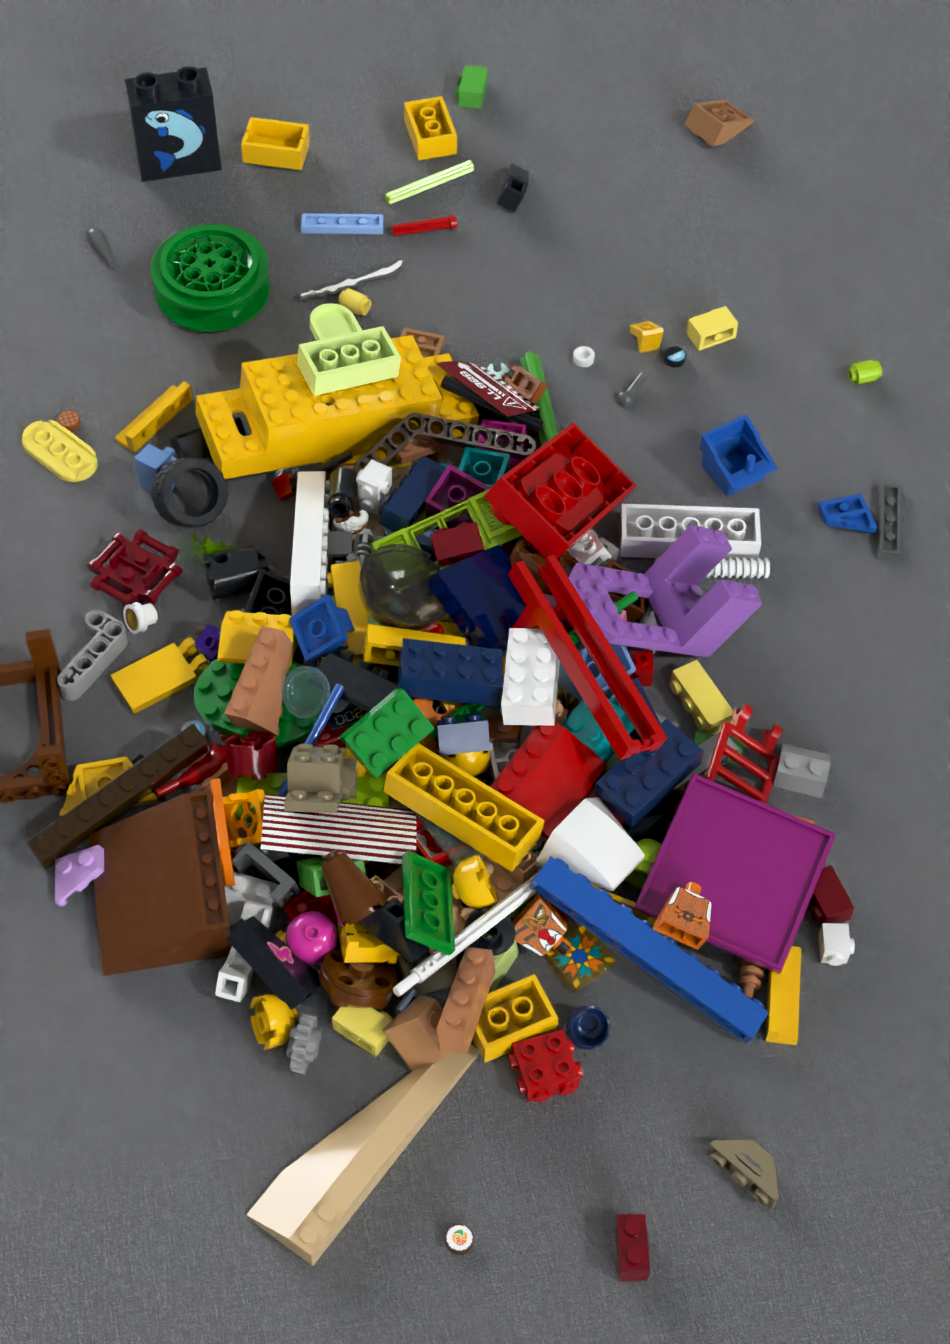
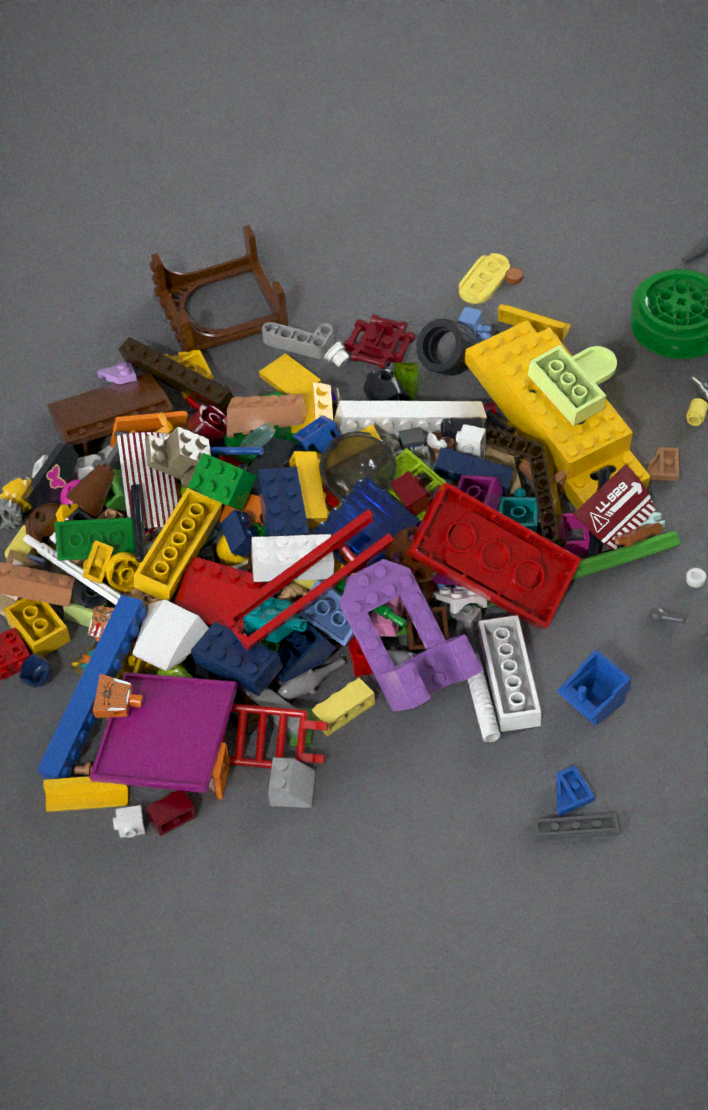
camera: 85 degrees right, 5 degrees down
(419, 843) = (138, 522): none -> black axle
(470, 909) = (96, 565): none -> yellow slope

